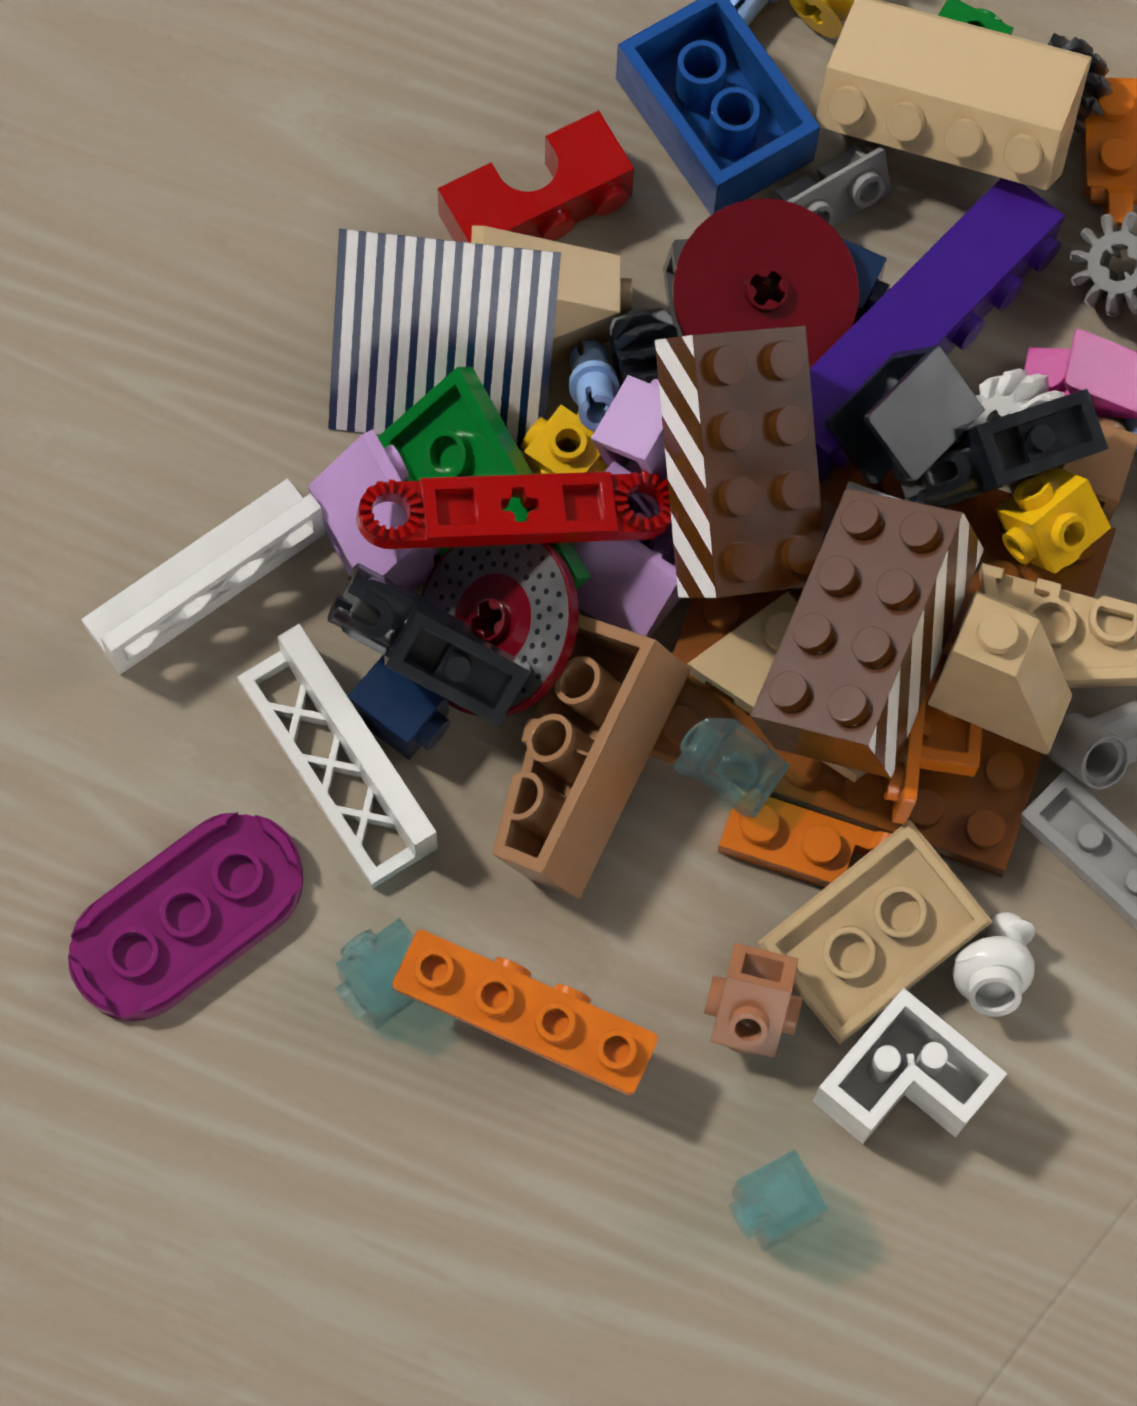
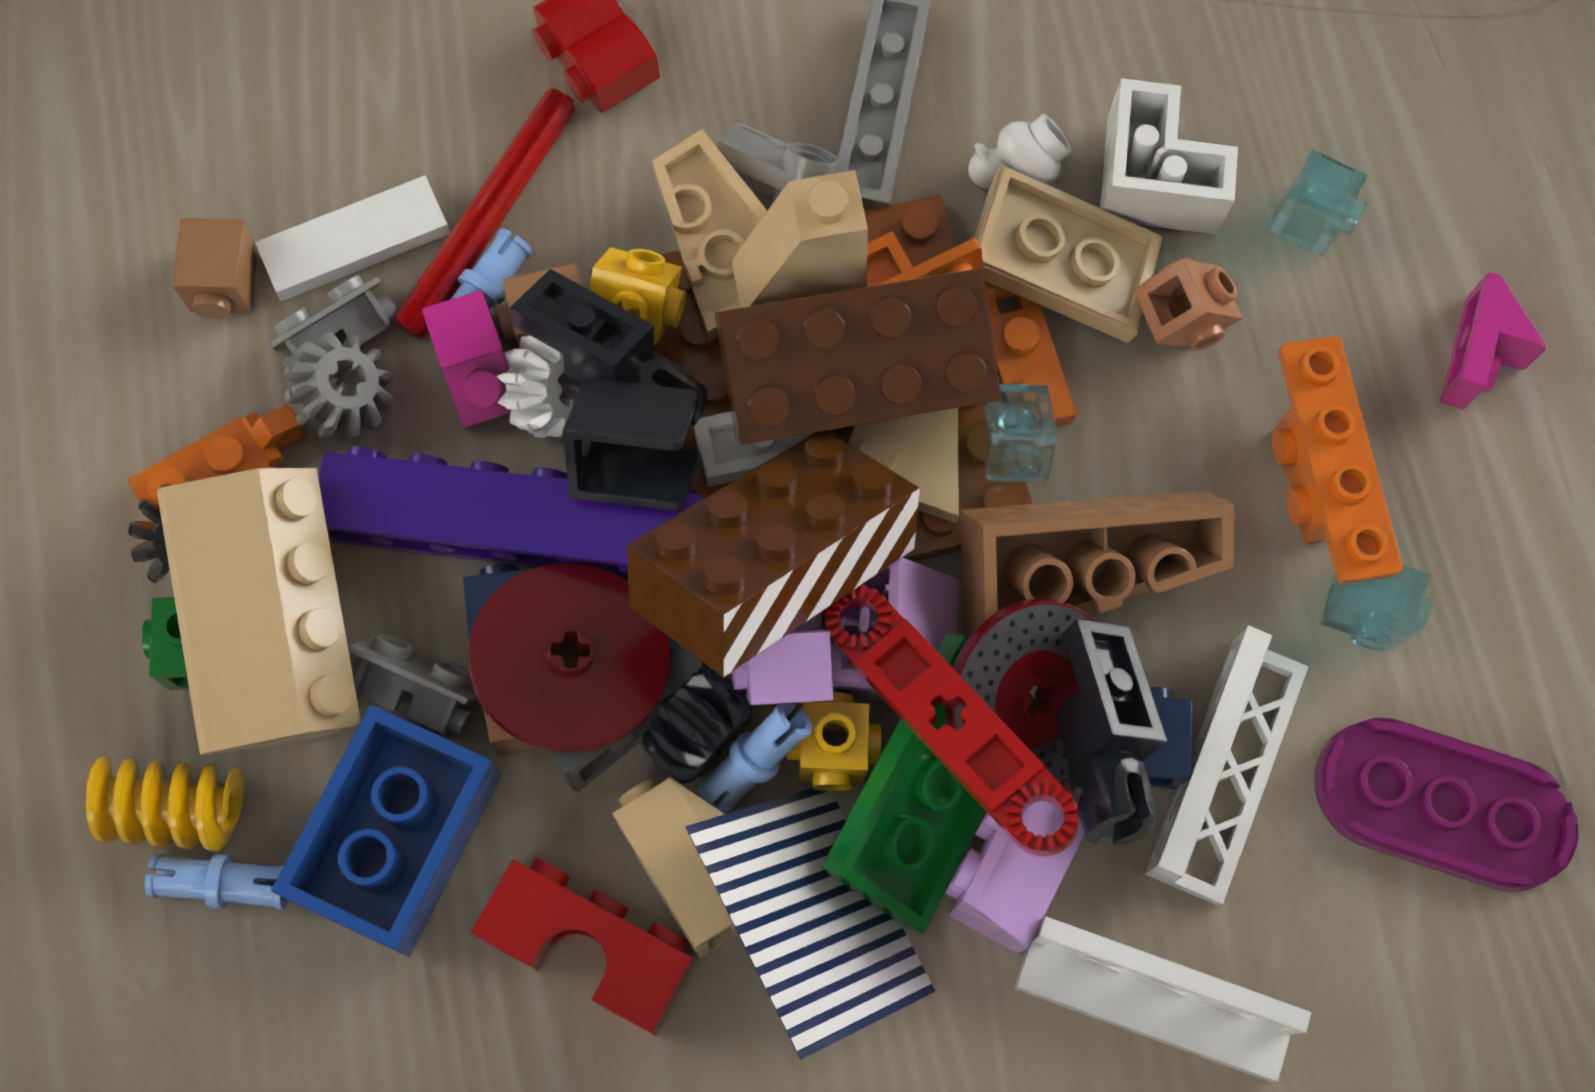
camera: 125 degrees left, 0 degrees up
(559, 1269) = (1489, 334): none -> dark pink slope

